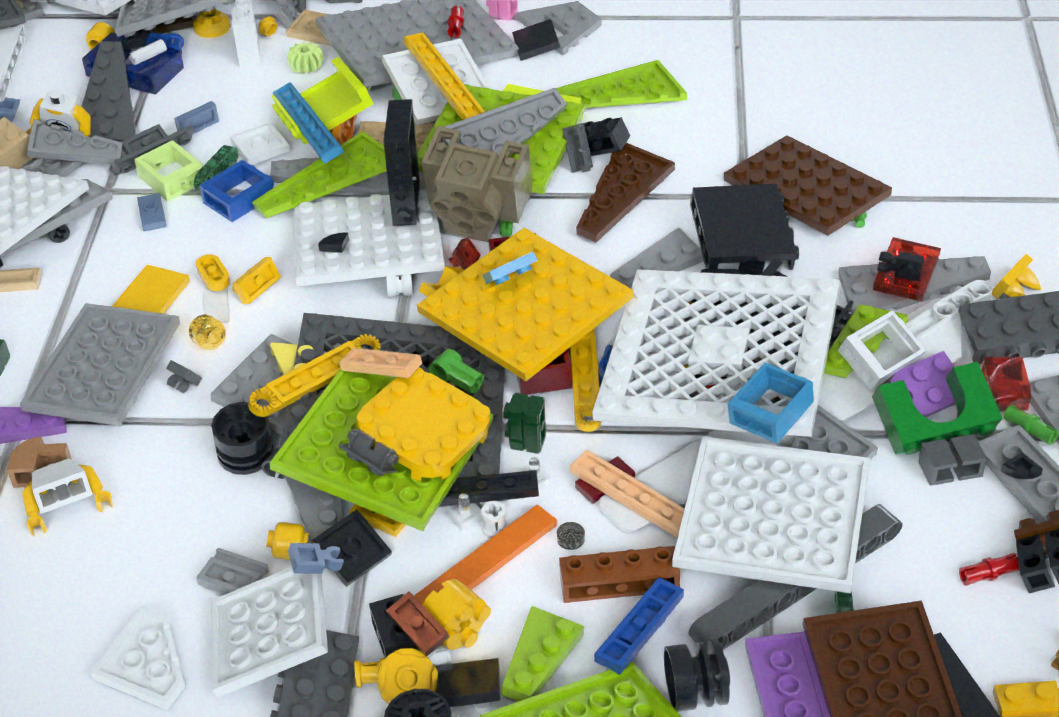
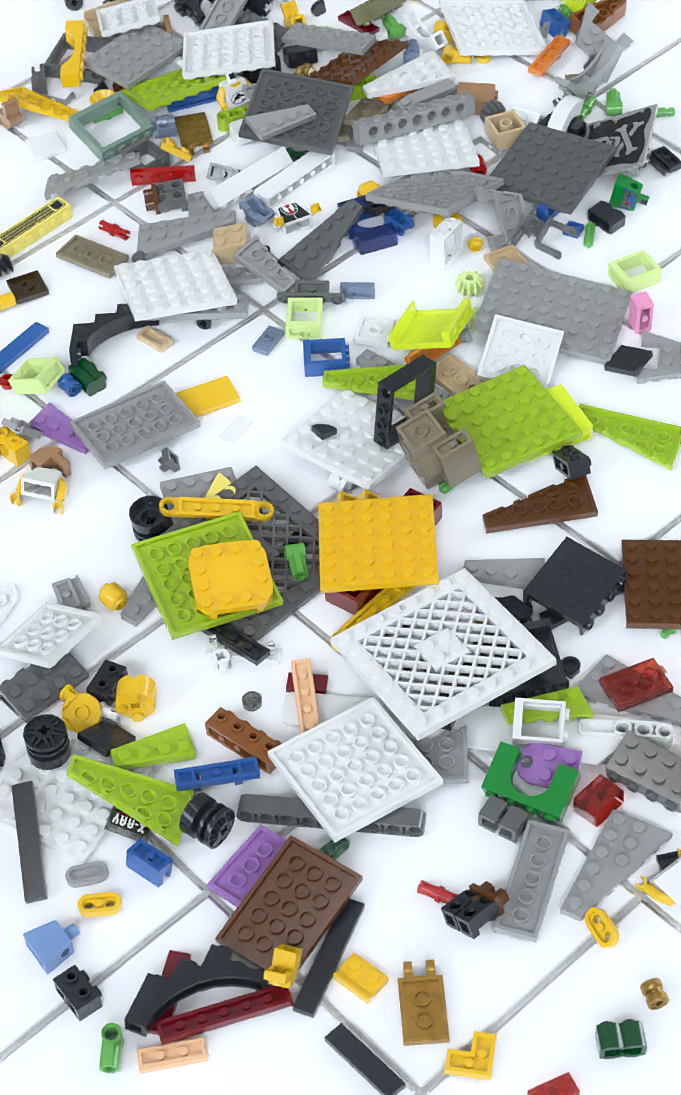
camera: 45 degrees right, 5 degrees up
(39, 87) = (294, 218): none -> torso
(61, 111) = (278, 241): torso -> none
(148, 52) = (381, 222): white piece -> none
(207, 332) = (208, 442): clear yellow head -> none
(212, 272) = (254, 404): yellow plate -> none
(220, 161) = (345, 327): clear green beam -> none
(256, 280) = (269, 426): yellow tile -> none
(308, 123) = (404, 335): dark azure tile -> none
(310, 559) = (91, 612): sand blue plate -> none
(358, 545) = (137, 623): black tile -> none
(361, 450) = (179, 576): dark grey hinge -> none
(381, 362) = (245, 525): light nougat tile -> none
(417, 623) = (107, 686): copper plate -> none
(443, 76) = (510, 363): yellow tile -> none
(455, 21) = (583, 315): red pin -> none
(464, 254) = (398, 487): clear red tile -> none
(496, 551) = (202, 680): orange tile -> none
(510, 122) = (498, 417): light grey wing -> none
(519, 265) = (374, 515): plate -> none
(525, 422) = (296, 618): dark green brick -> none
(578, 148) = (546, 460): dark grey hinge -> none
(762, 422) = (404, 689): dark azure window -> none
(905, 265) = (624, 681): black plate -> none
(1022, 467) = (531, 853): black tile -> none
(1031, 424) = (581, 836): bright green pin -> none

